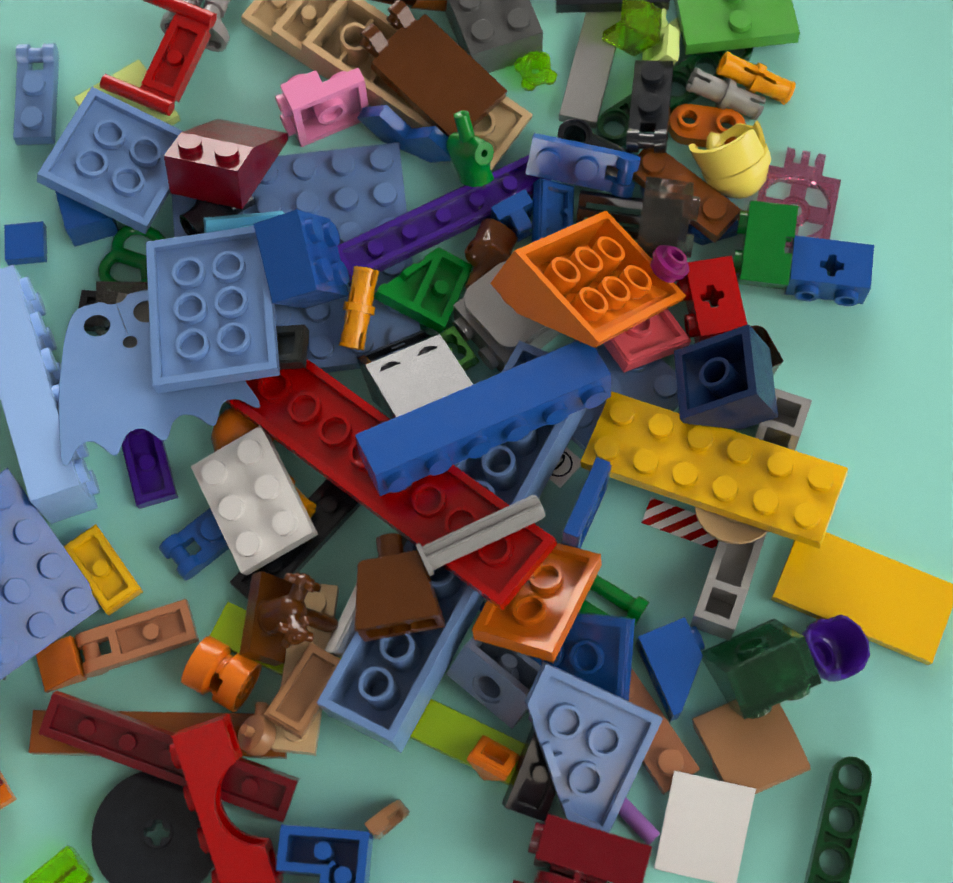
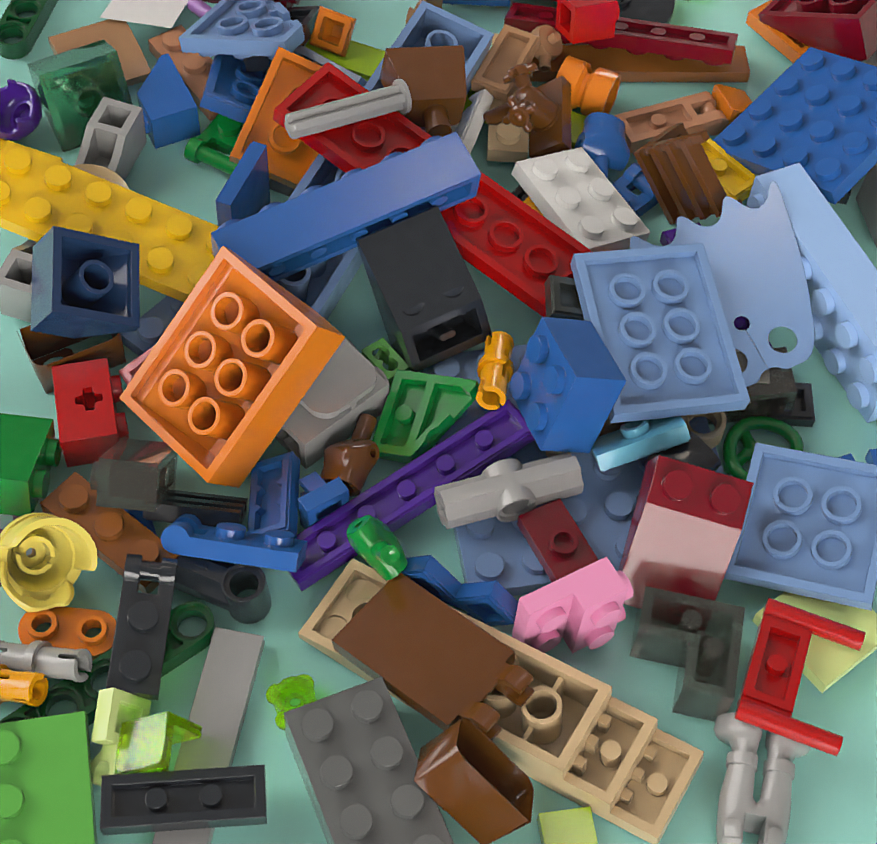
camera: 170 degrees right, 15 degrees down
(152, 540) = (681, 174): none -> reddish brown plate
(217, 593) = (604, 141): none -> blue piece
(229, 86) = (697, 638): none -> clear smoke brick
(322, 160) = (556, 540): none -> dark red plate
(363, 201) = (508, 490): none -> light grey piece
(669, 263) = (144, 420): magenta plate -> none

